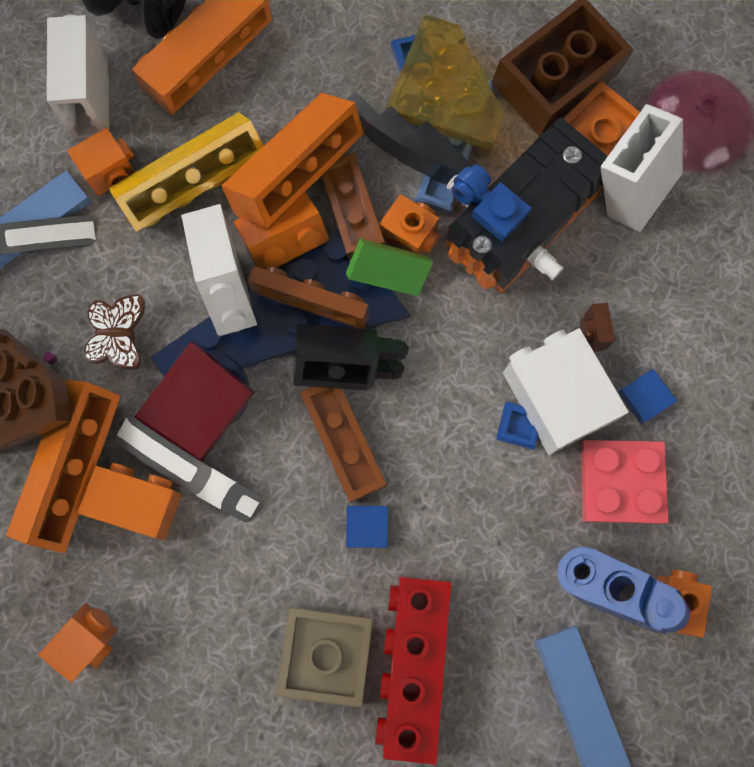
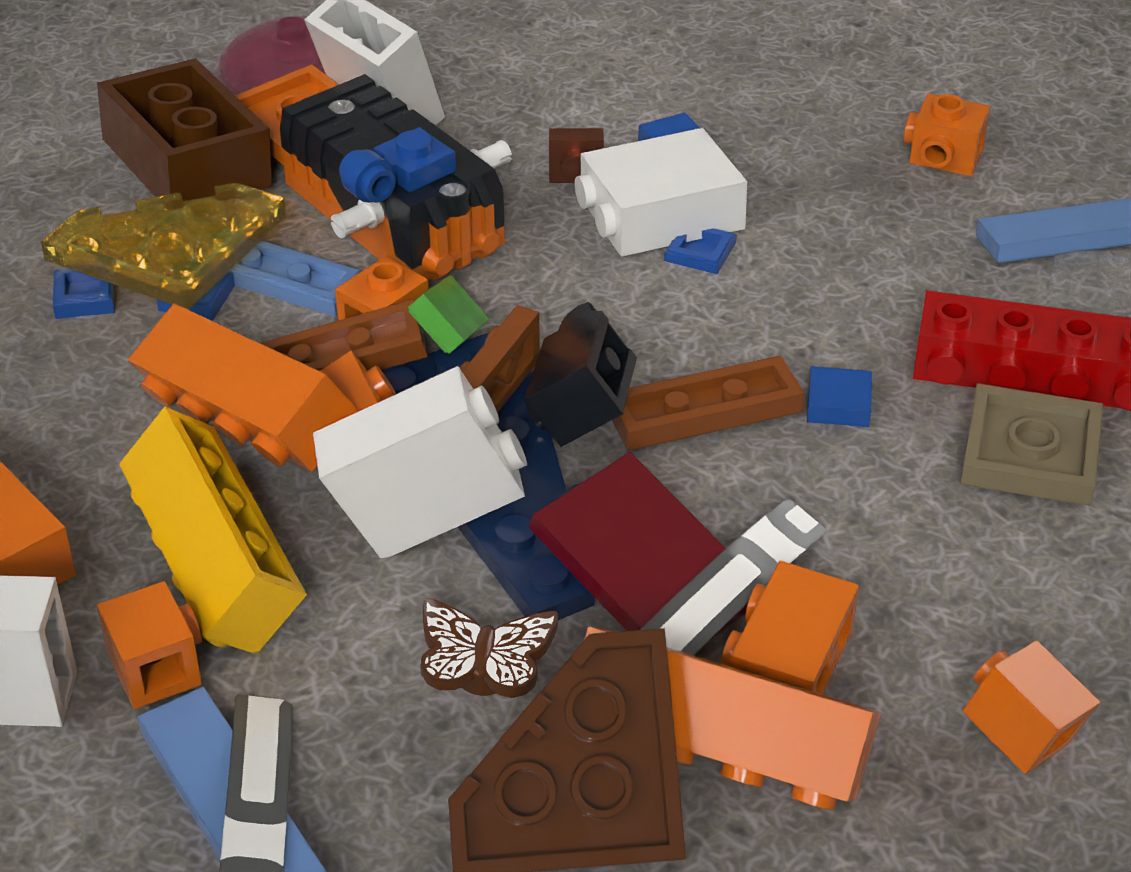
camera: 85 degrees left, 35 degrees down
(419, 148) = (267, 266): black slope -> none
(624, 482) = (790, 168): coral plate -> none
(651, 606) = (950, 122): piece -> none

